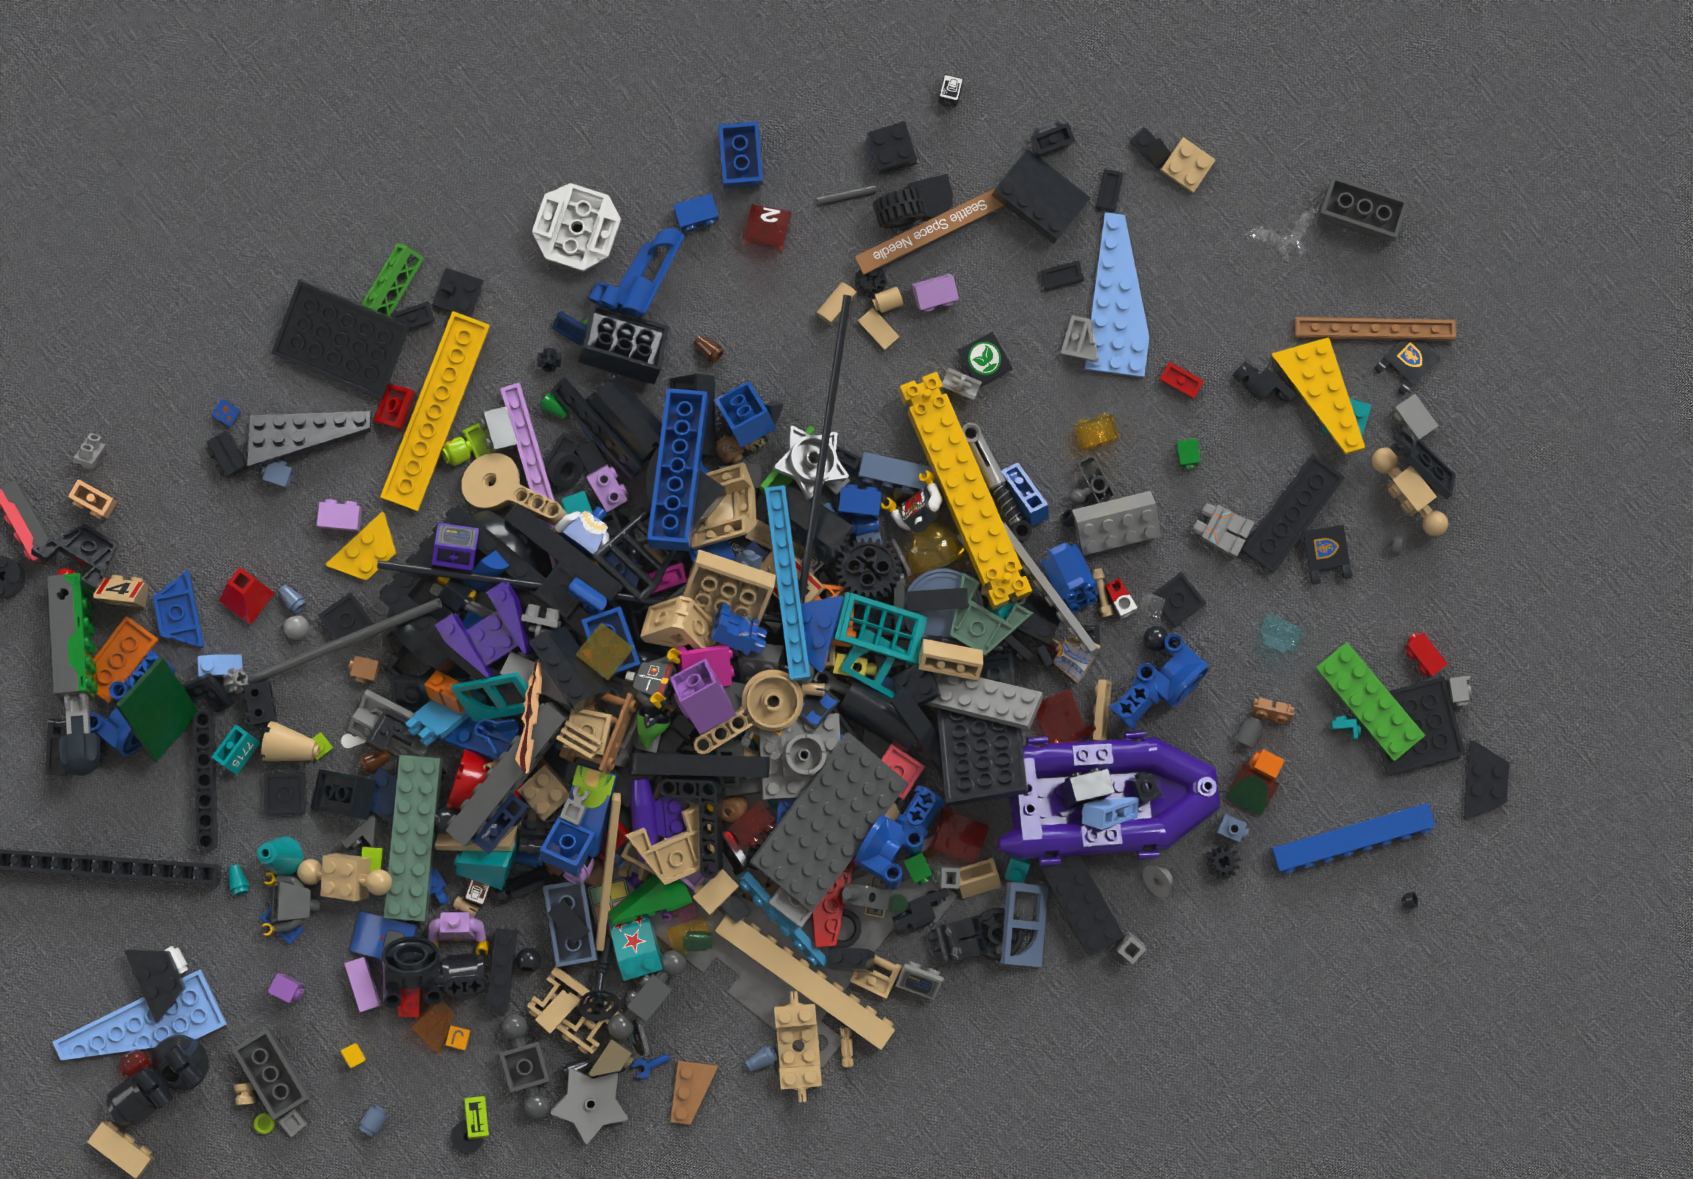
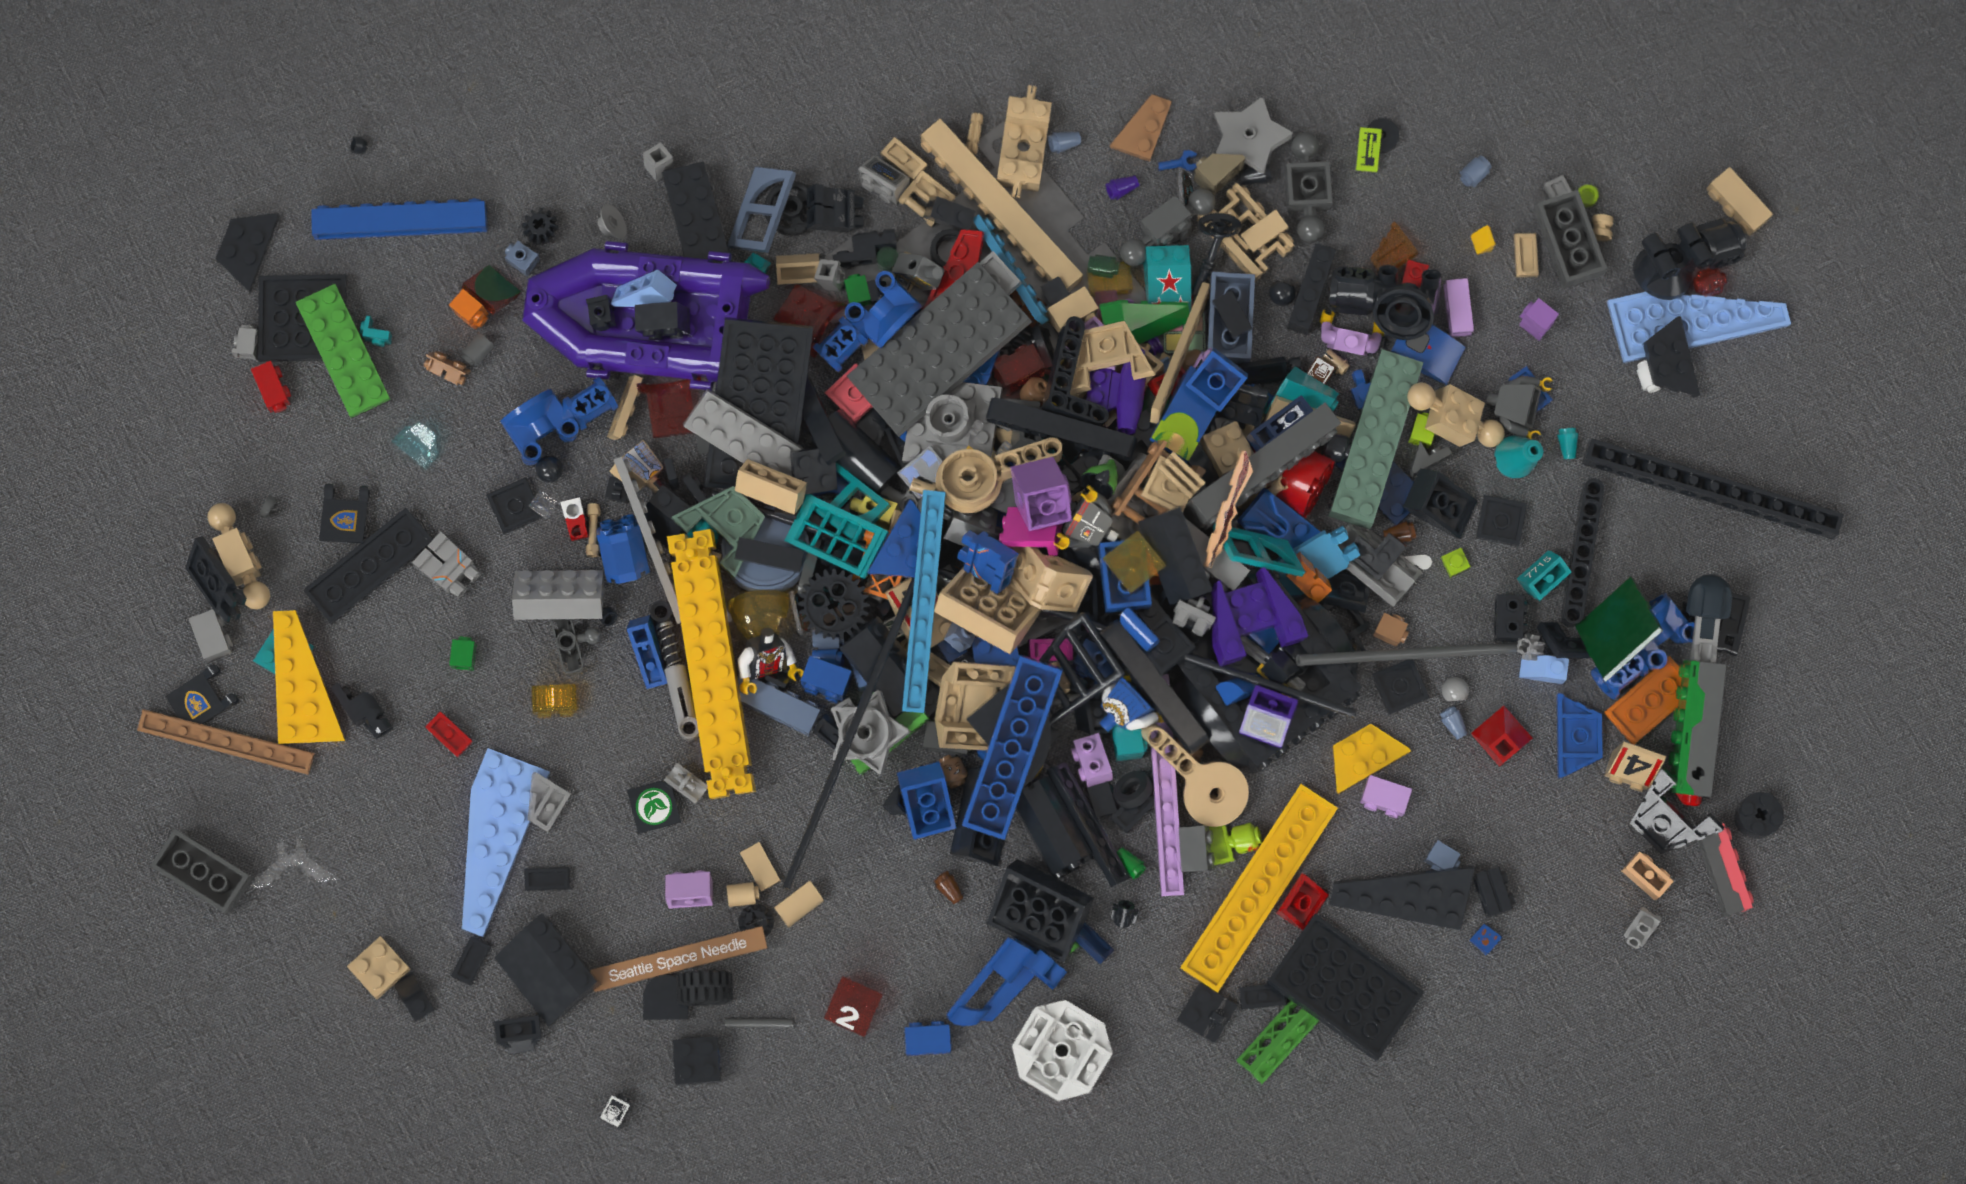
camera: 170 degrees left, 5 degrees down
(287, 745) = (1488, 565): tan cone -> none
(310, 1052) = (1526, 255): none -> tan tile
(458, 1037) = (1371, 234): light orange tile -> none
(574, 808) = (1201, 415): light grey plate -> none
(698, 1027) = (1121, 186): none -> dark purple cone
(740, 155) = (864, 1090): blue brick -> none
(905, 1006) = (903, 159): none -> tan plate

